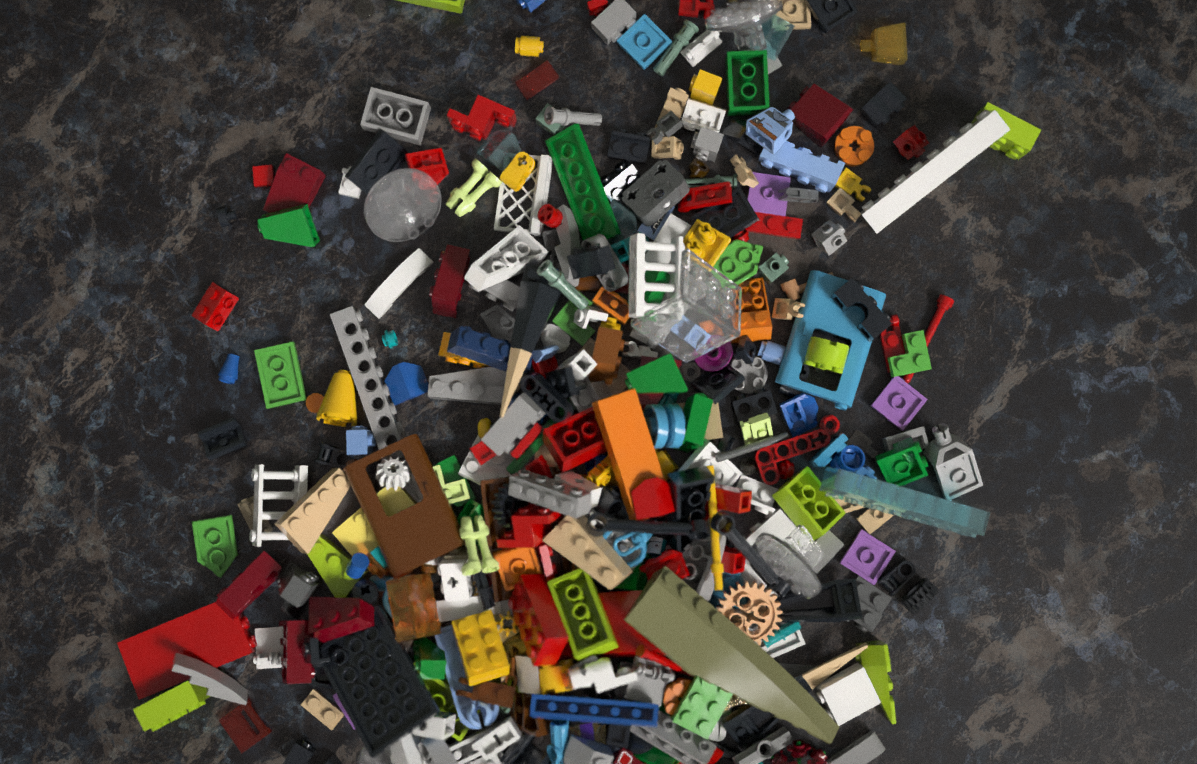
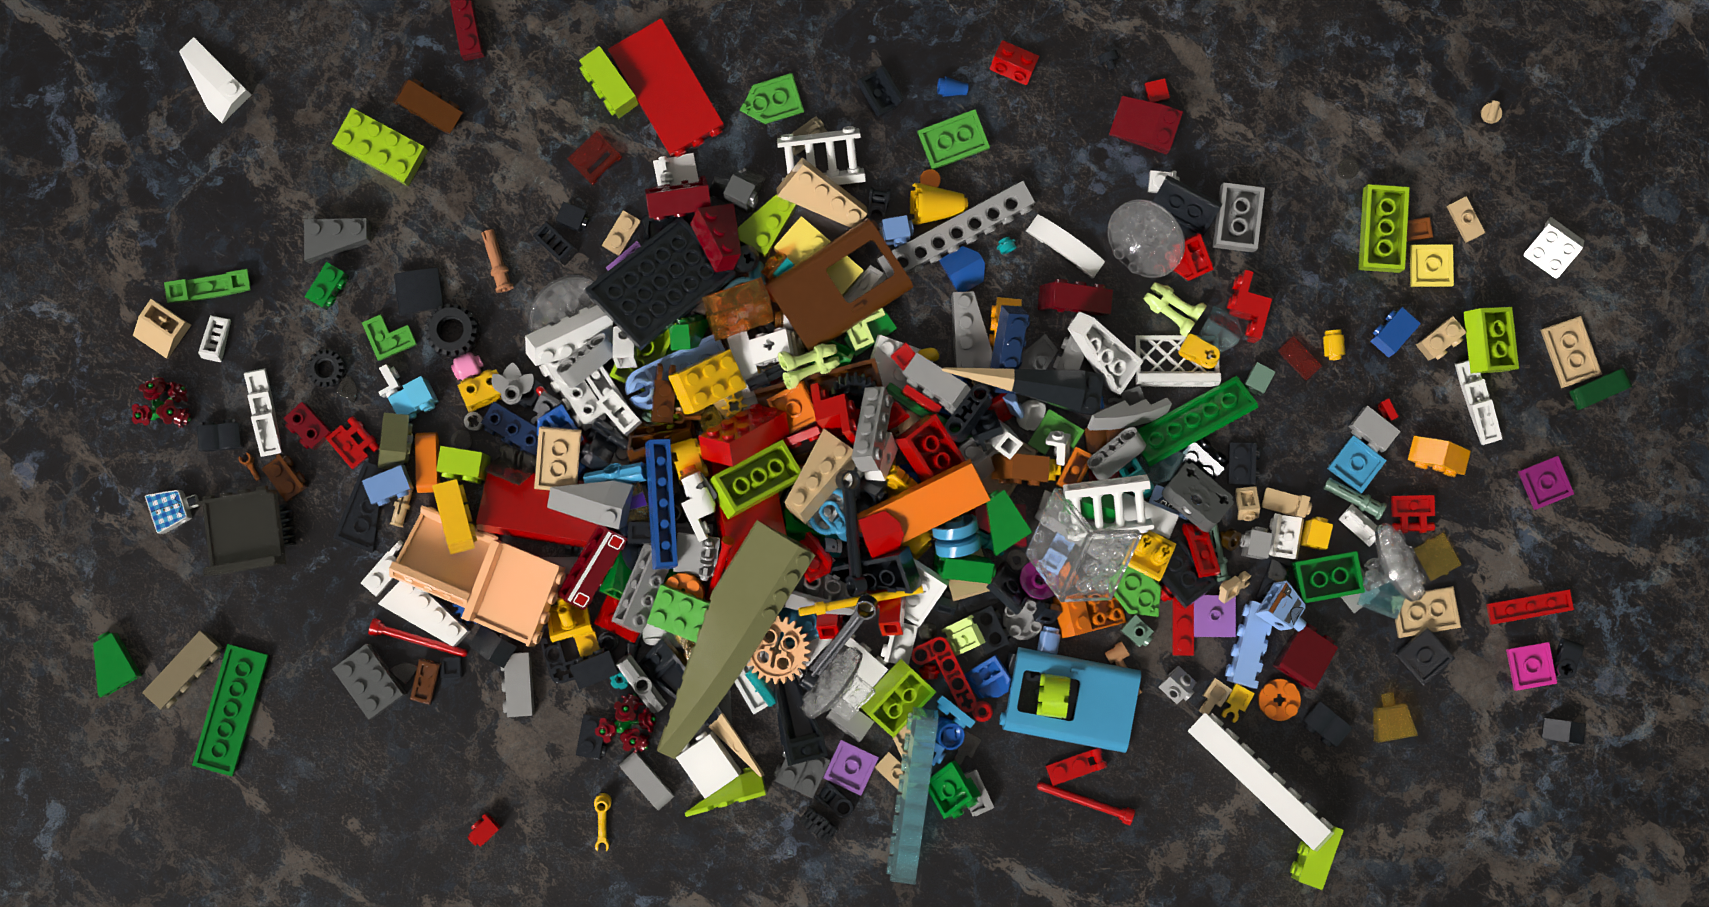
camera: 80 degrees right, 0 degrees up
(216, 682) = (636, 122): light grey slope -> none
(248, 585) = (737, 140): dark red wedge -> none
(290, 226) = (1108, 126): green slope -> none
(311, 652) = (681, 213): black bracket -> none
(357, 565) = (771, 246): blue piece -> none
(393, 473) = (869, 268): white gear -> none
(527, 676) = (686, 432): white sticker -> none
(550, 216) = (1157, 391): red wheel -> none
(557, 279) = (1090, 407): sand green pin -> none
(565, 116) = (1263, 392): light grey pin -> none
(591, 261) = (1115, 438): black brick -> none
(637, 352) = (1028, 498): white plate -> none
(666, 126) = (1270, 499): dark grey plate -> none
(751, 447) = (947, 631): dark grey bar -> none
(786, 308) = (1096, 650): tan plate -> none
(799, 195) = (1217, 648): dark grey piece -> none
(853, 294) = (1119, 714): black arch -> none
(898, 402) = (1015, 780): medium lavender plate -> none
(911, 143) = (1290, 759): red brick -> none
(916, 356) = (1063, 791): bright green plate -> none
(953, 463) = (959, 843): light grey plate -> none

